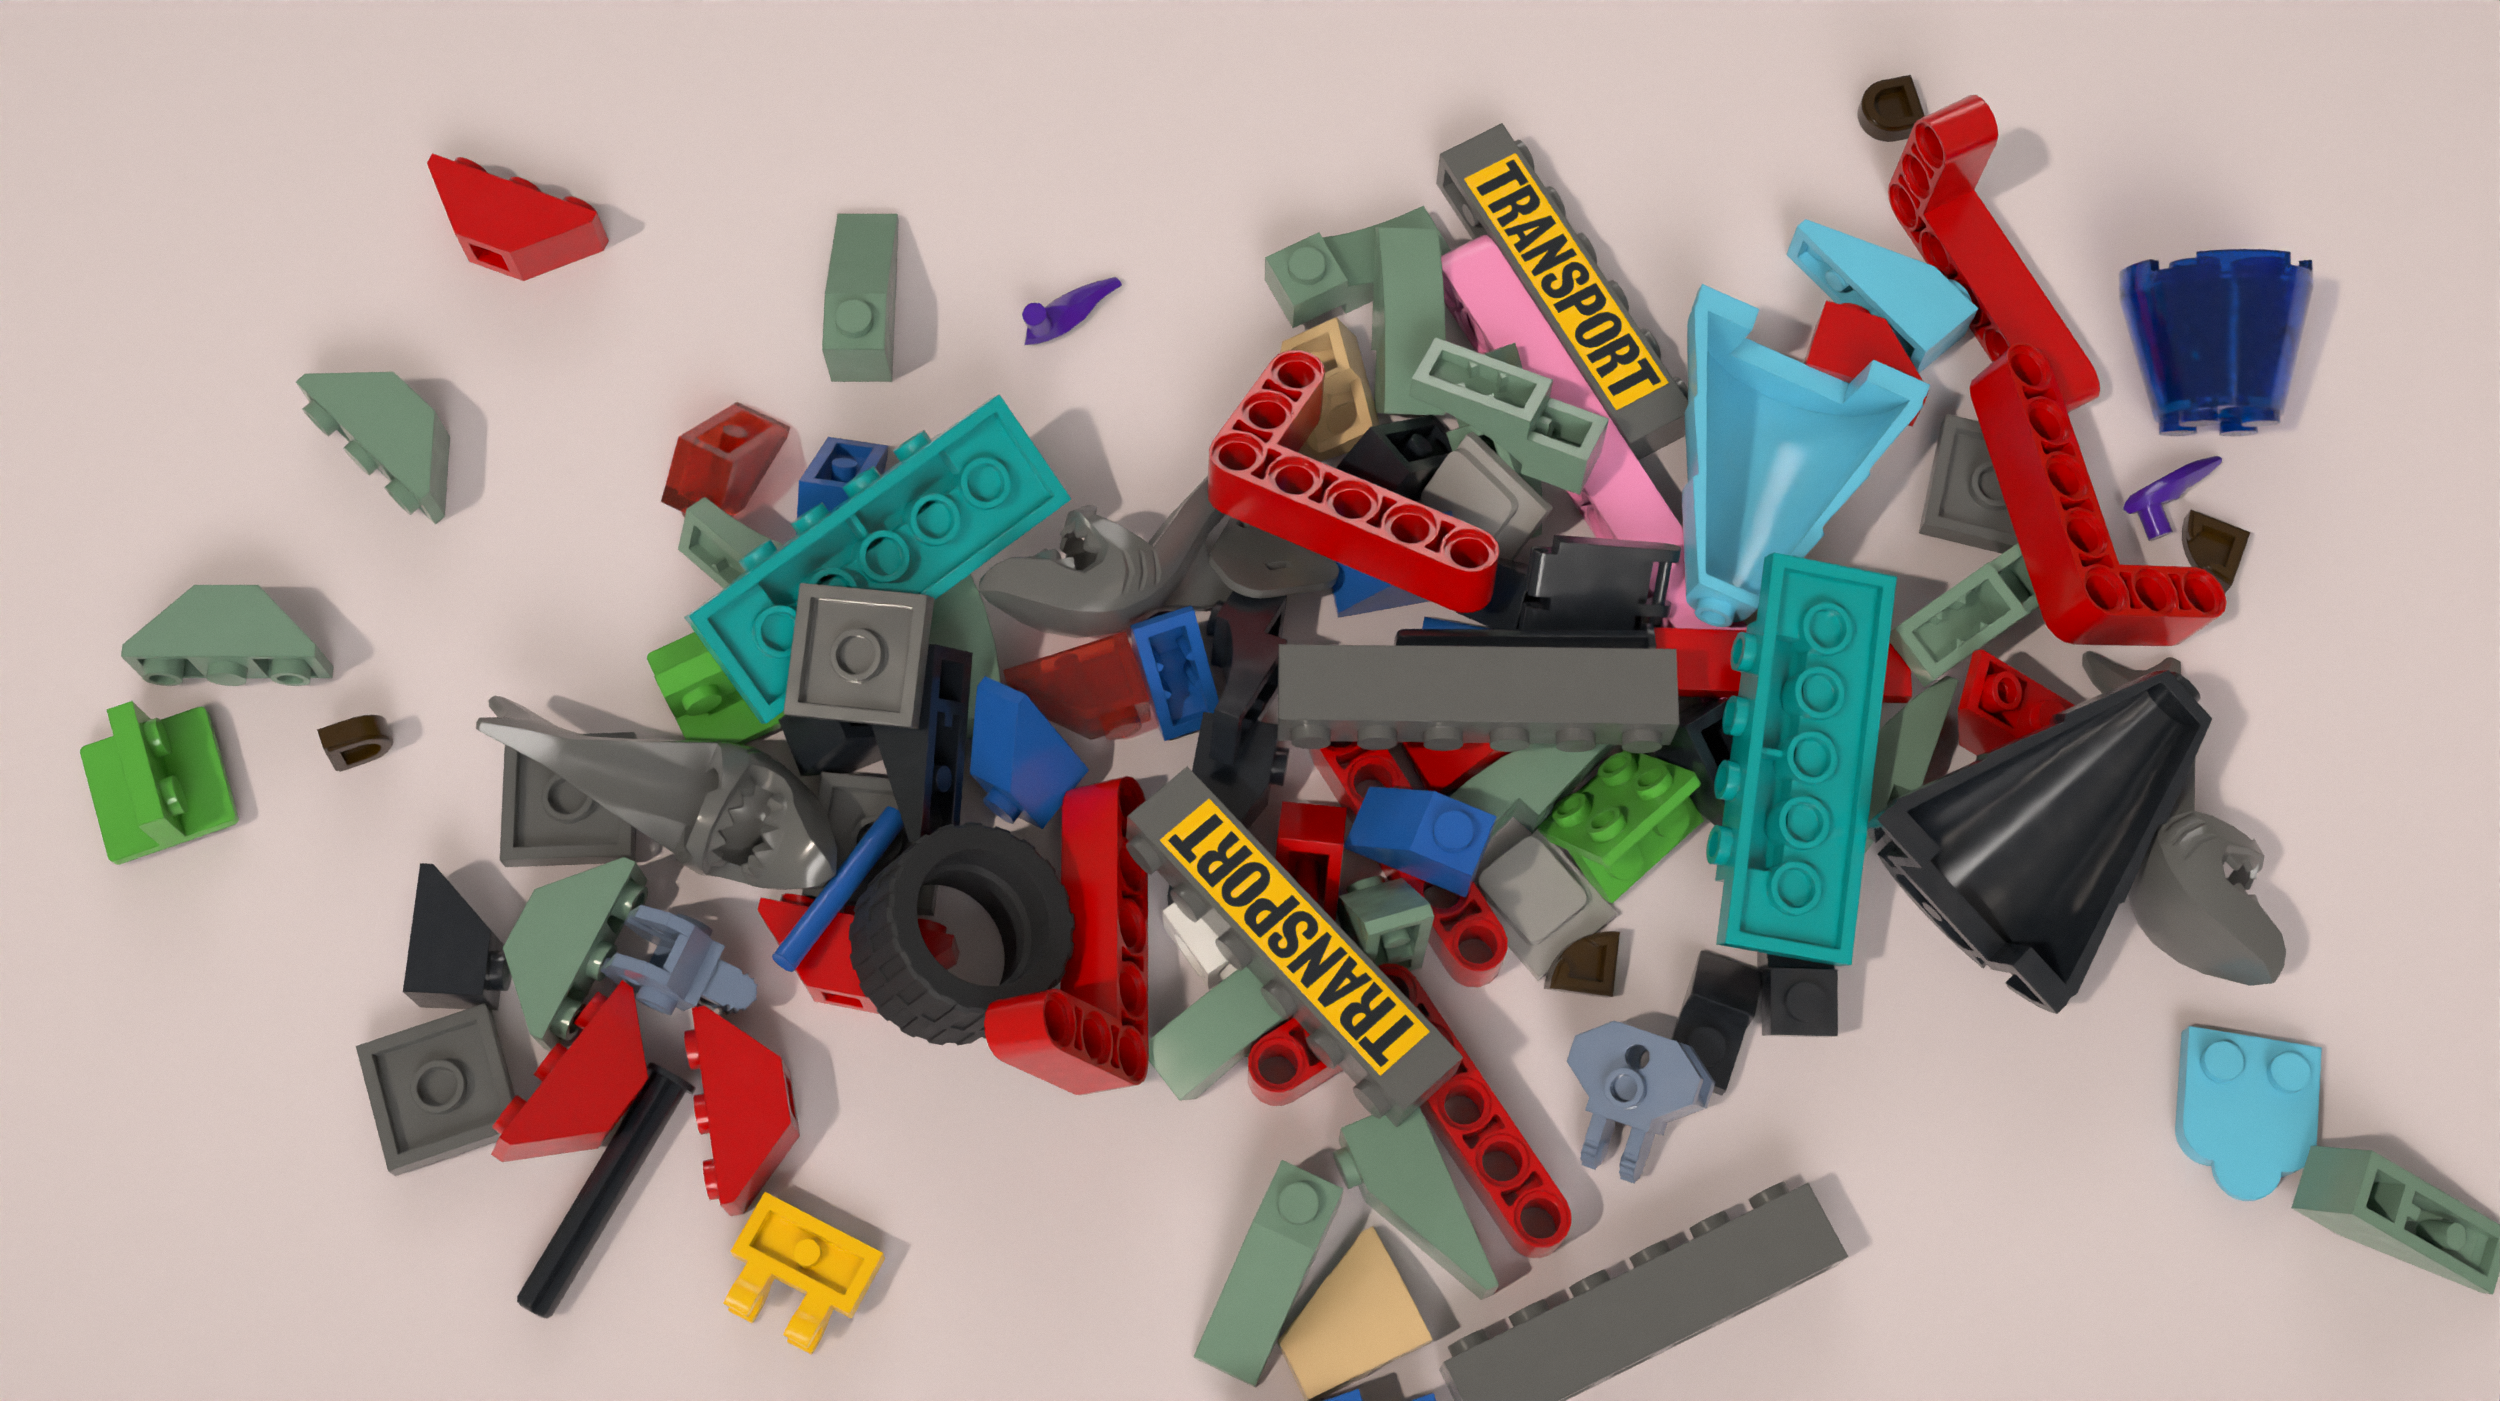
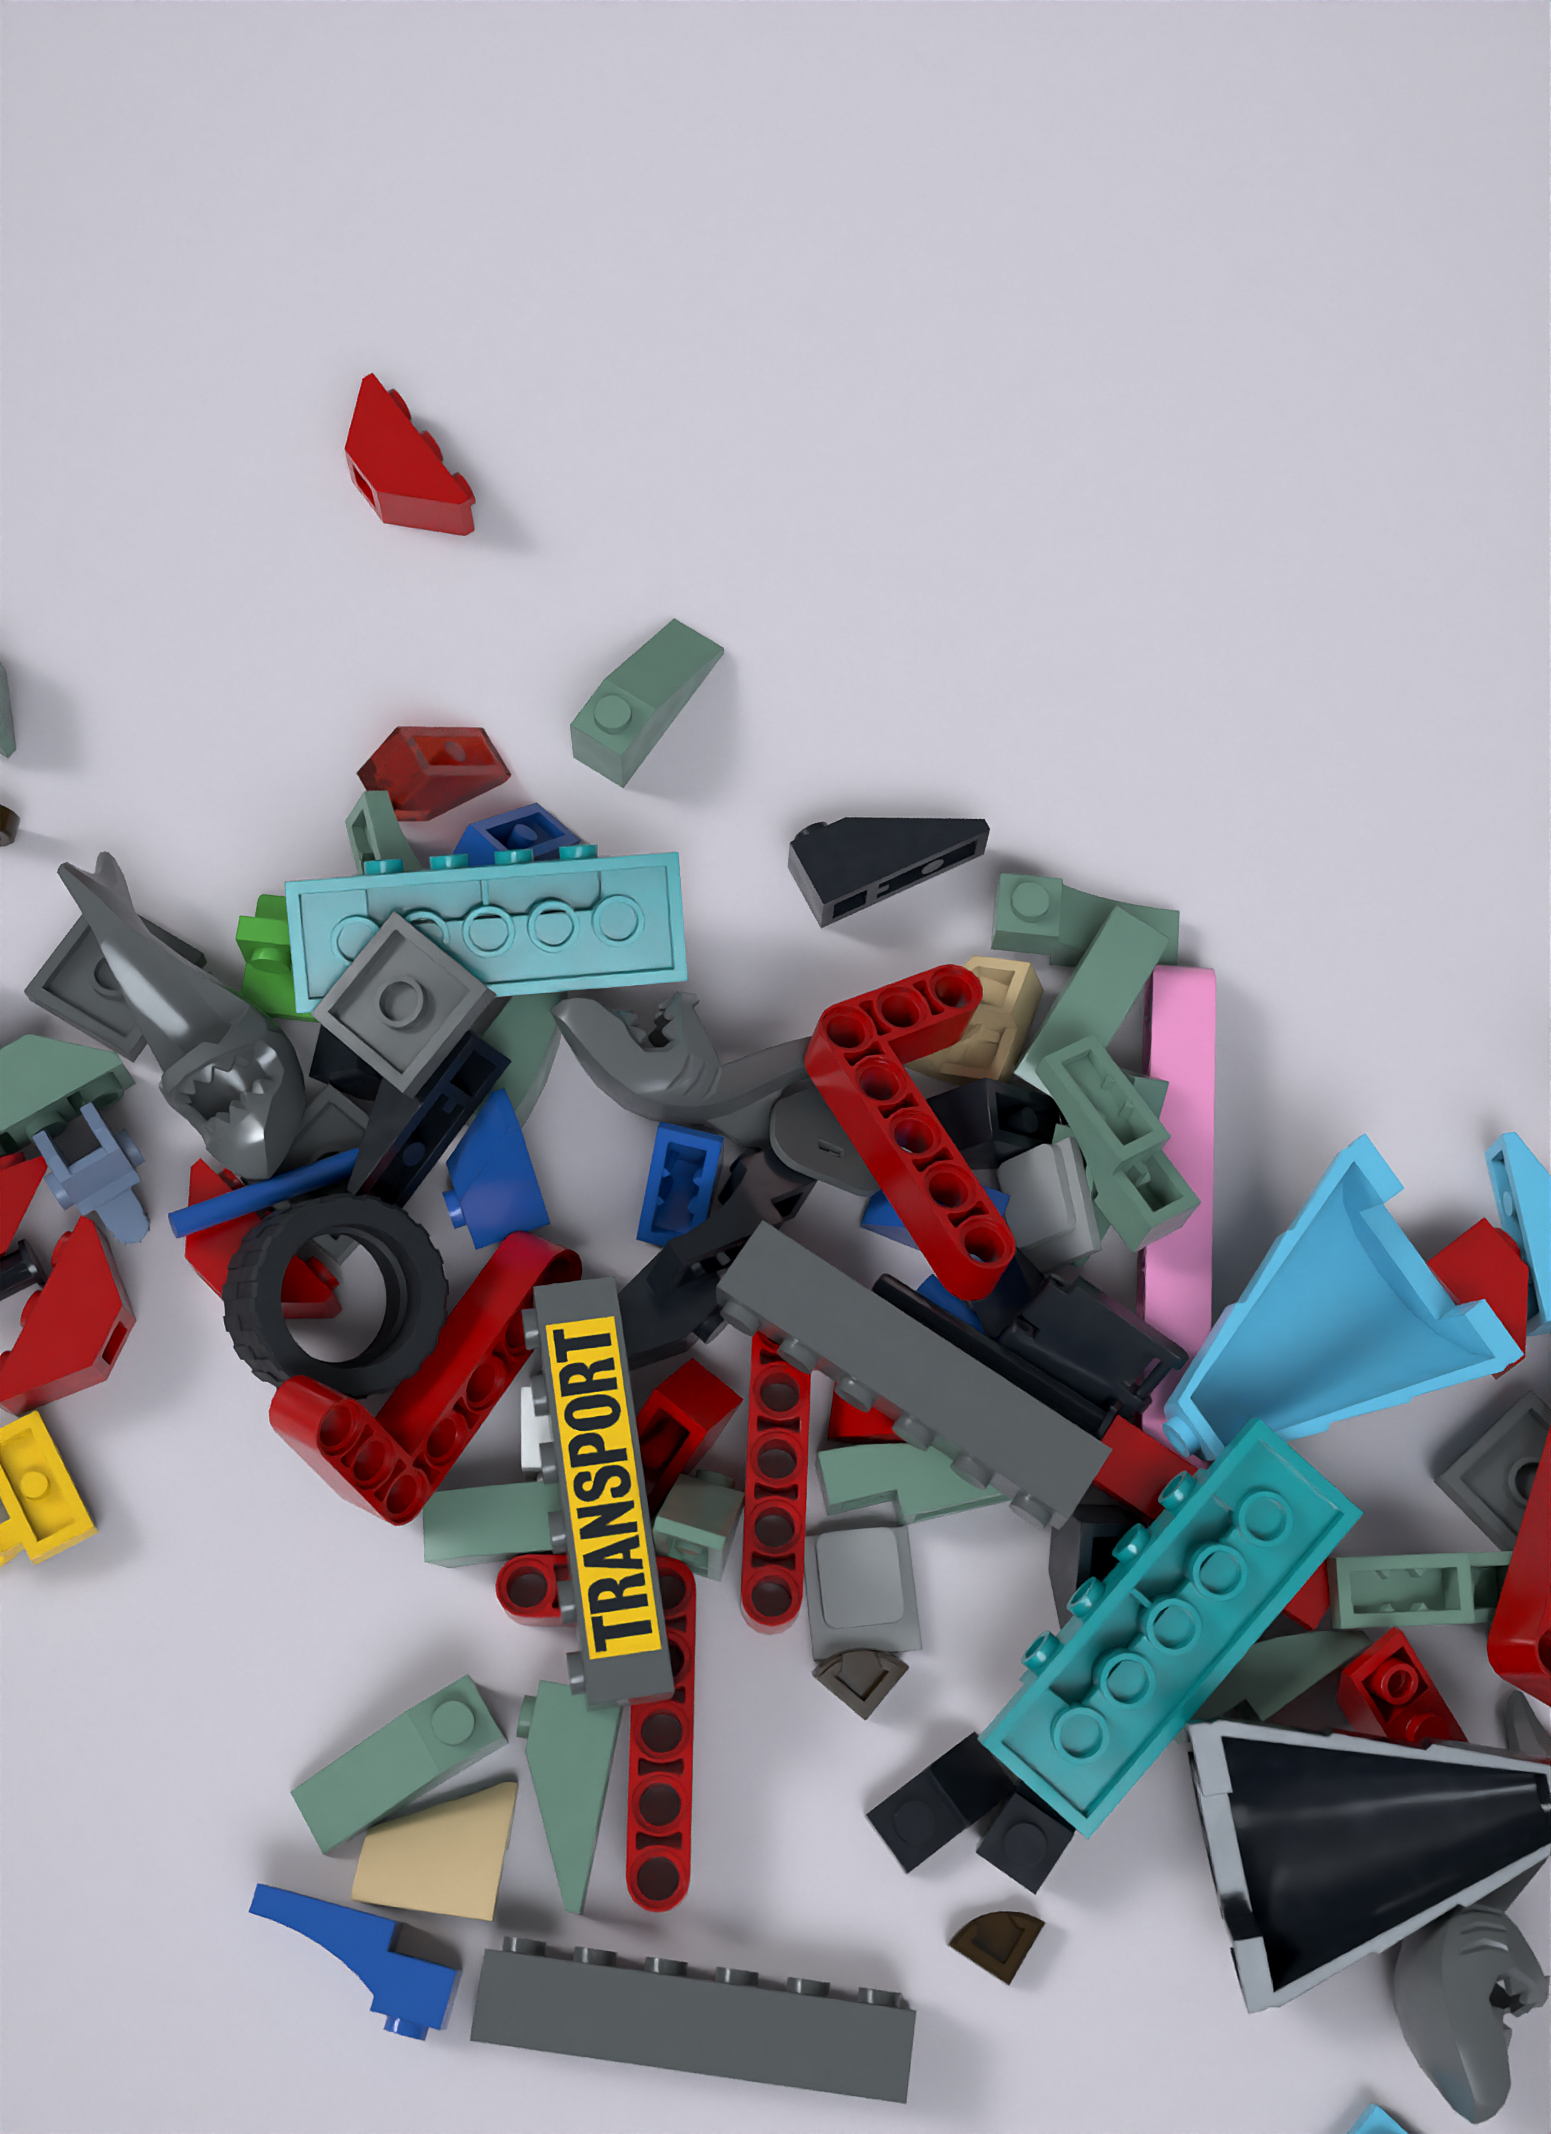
camera: 30 degrees right, 0 degrees up
(385, 431) = (184, 583): sand green slope -> none
(1064, 312) = (795, 816): dark purple bar -> none
(1087, 688) = (597, 1152): clear red slope -> none
(1146, 312) = (873, 858): none -> black slope
(1422, 835) = (783, 1469): blue slope -> none
(1500, 196) = (1255, 1048): brick -> none
(1624, 820) = (981, 1570): bright green bracket -> none
(1625, 1092) = (827, 1814): sand blue hinge -> none
(1828, 1098) = (997, 1942): none -> dark brown tile

